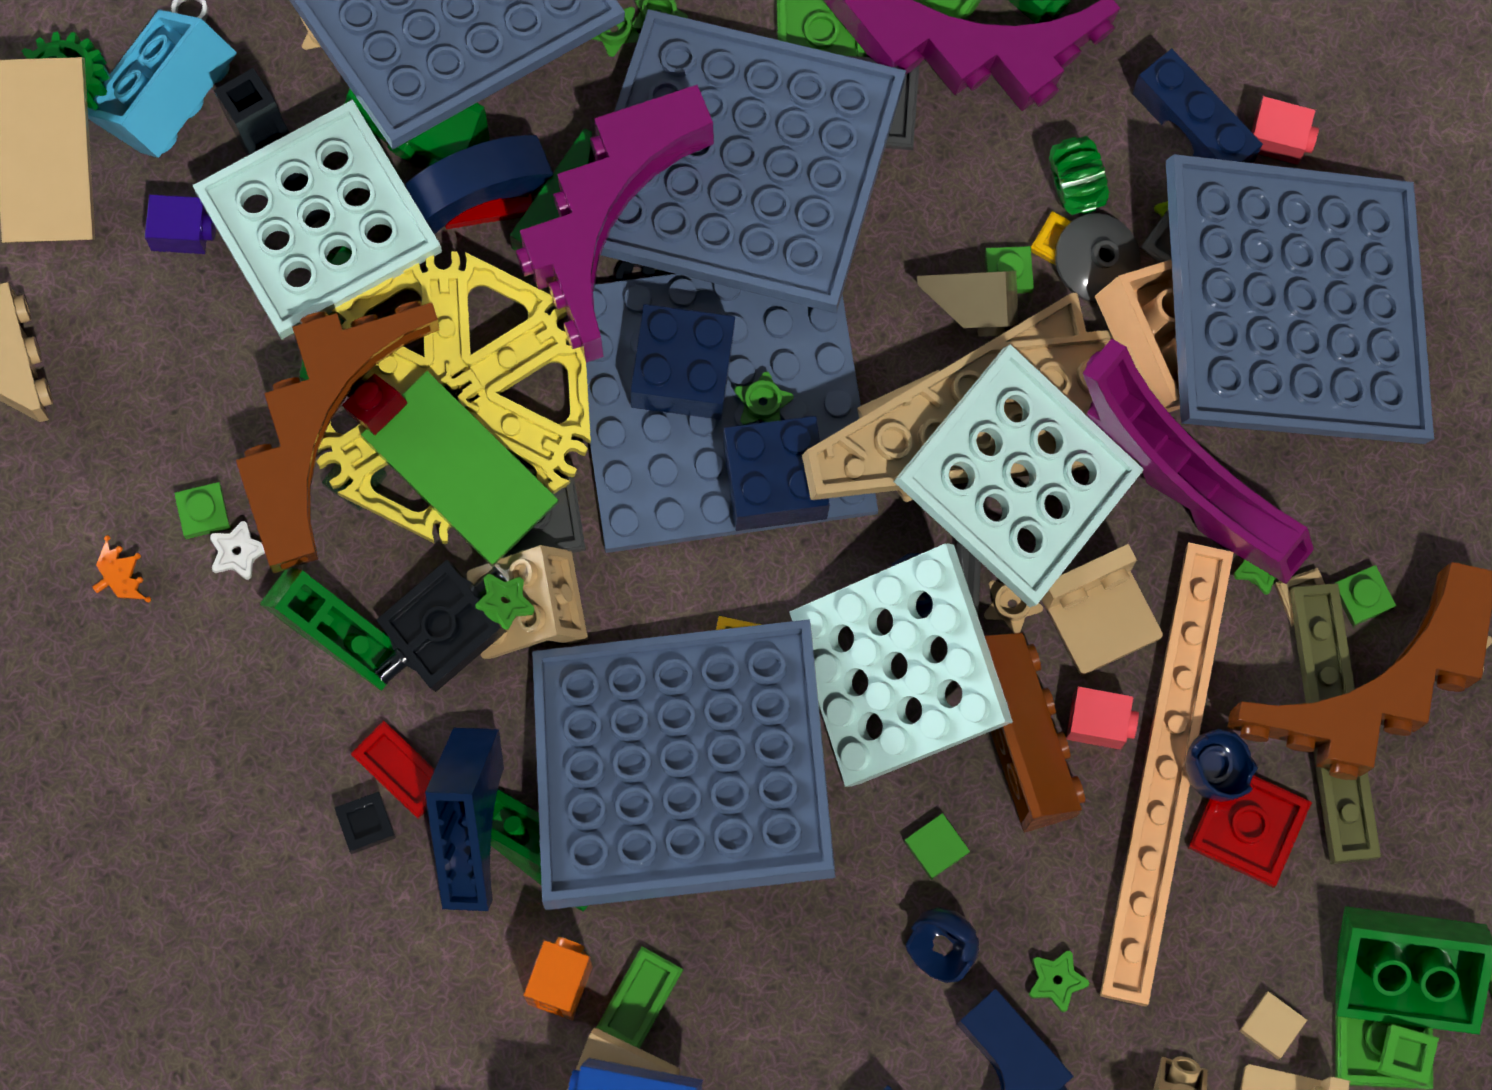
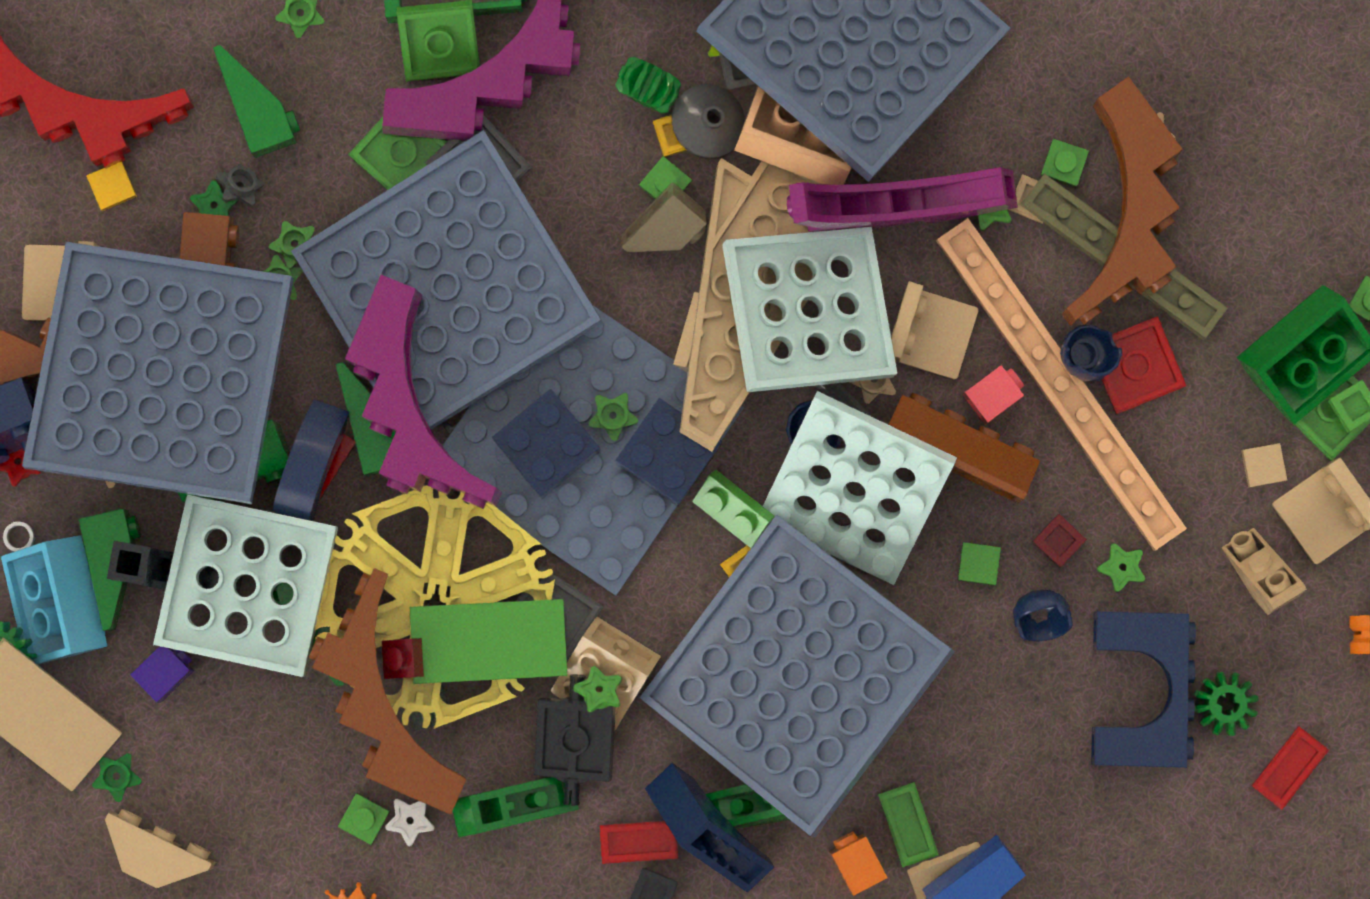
camera: 40 degrees left, 10 degrees up
(50, 257) = (116, 787): none -> green plate
(207, 120) = (98, 538): none -> green slope
(779, 578) = (733, 508): none -> bright green plate
(1026, 898) = (1059, 540): none -> dark red plate

